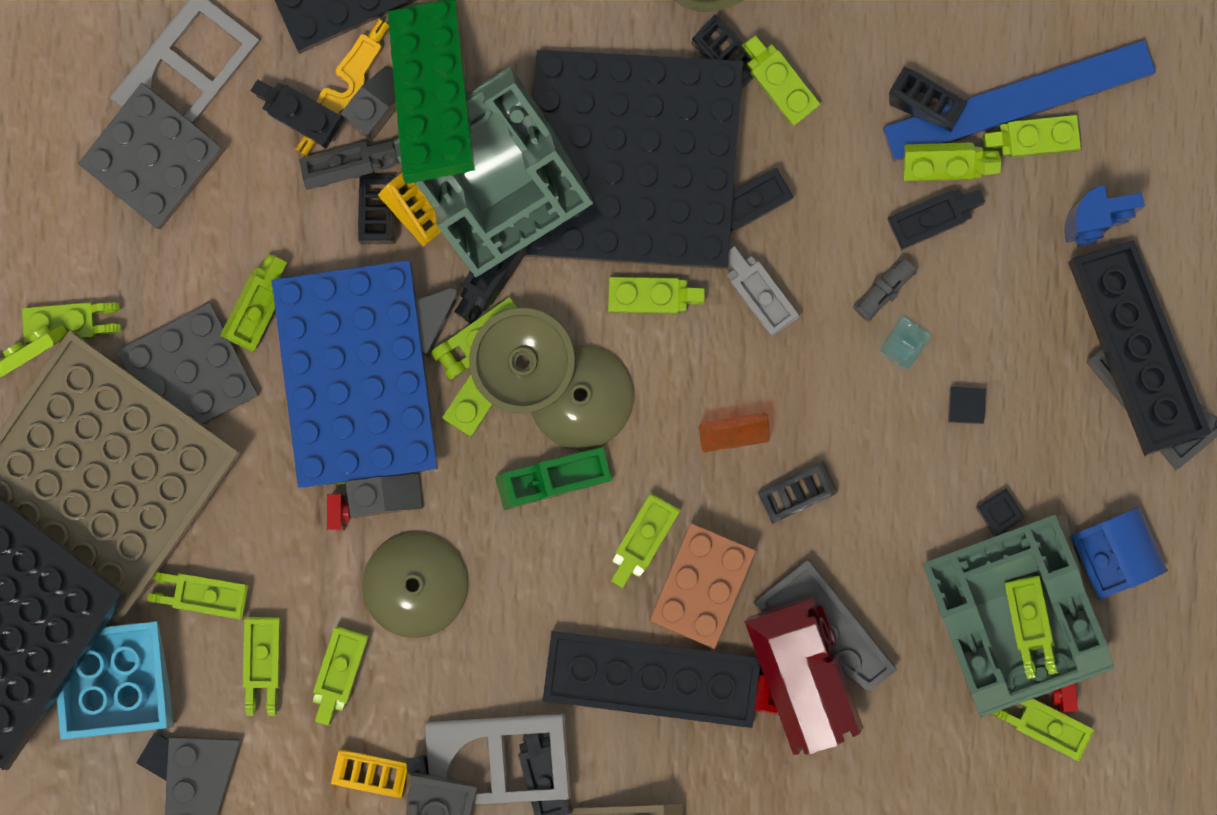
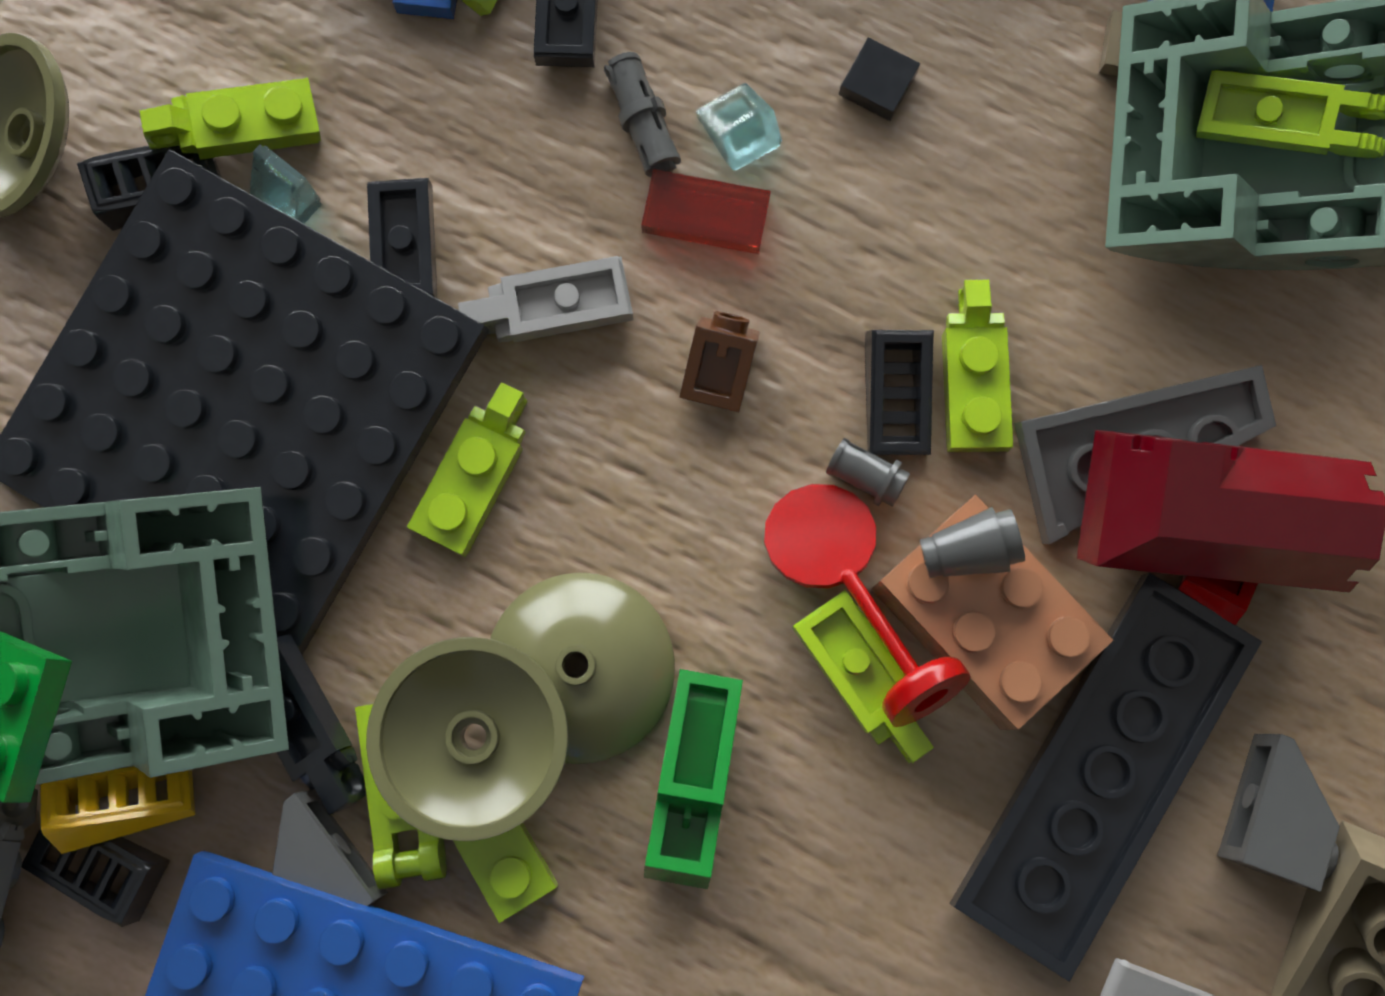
camera: 65 degrees left, 5 degrees down
(667, 773) = (1281, 817): none -> dark grey slope
(701, 488) = (825, 540): none -> red piece
(725, 557) = (975, 546): none -> dark grey cone
(734, 432) = (756, 445): clear orange slope -> none
(746, 495) = (868, 472): none -> dark grey pin
(752, 122) = (282, 186): none -> clear light blue slope
(769, 393) = (720, 361): none -> reddish brown bracket
(825, 529) = (976, 374): none -> lime hinge
(848, 348) = (705, 211): none -> clear red tile
(1000, 512) = (1067, 105): black tile -> none

